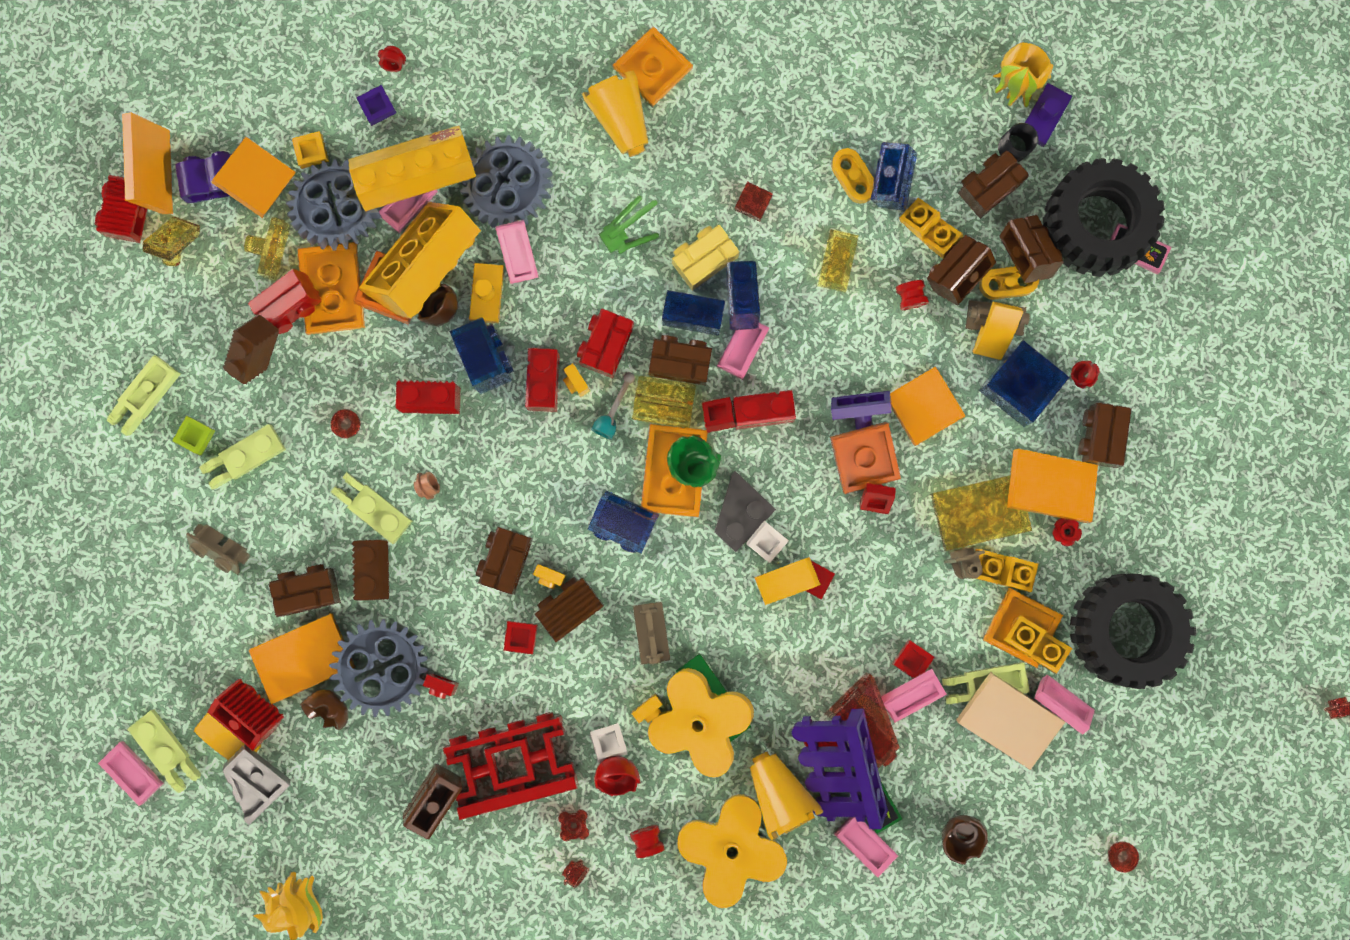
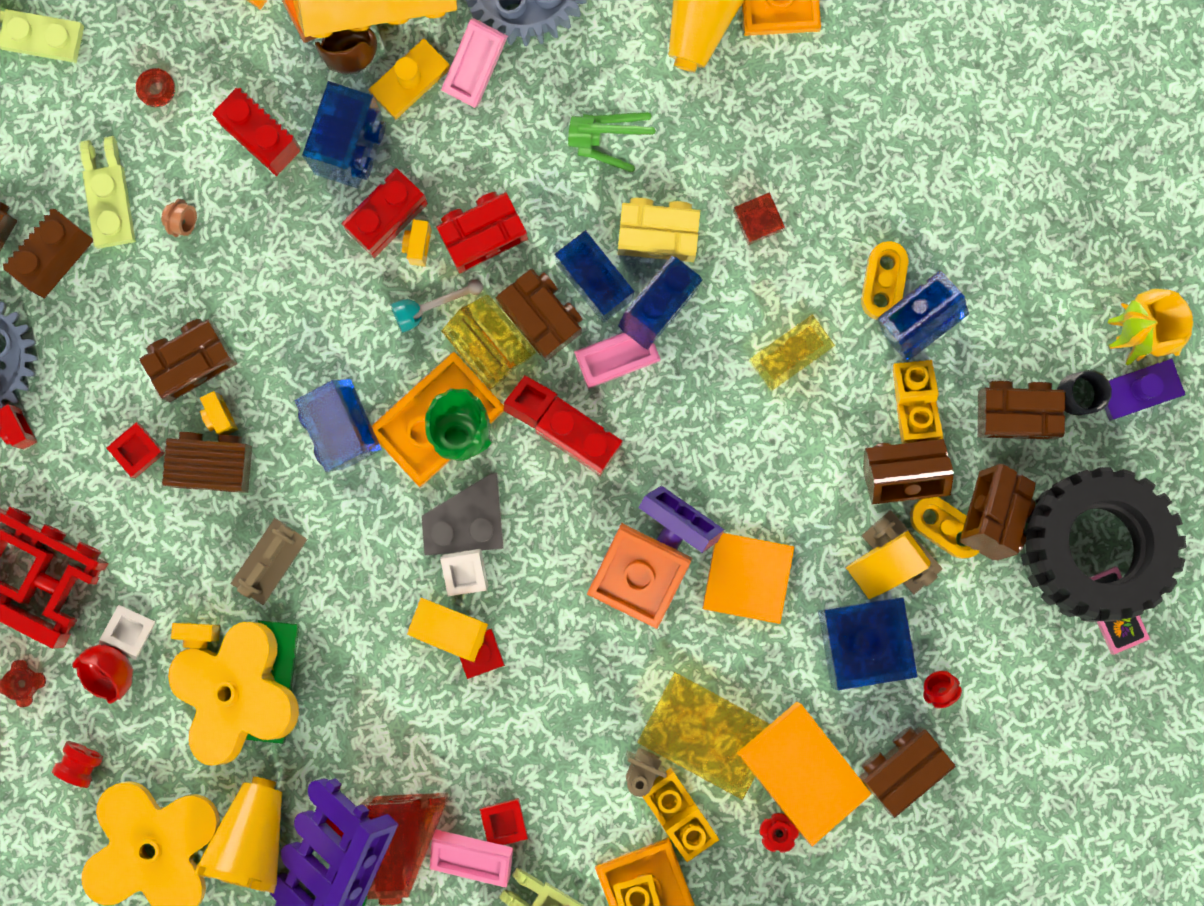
camera: 40 degrees right, 0 degrees up
(877, 498) = (614, 627): red plate -> none
(912, 295) = (835, 453): red wheel -> none

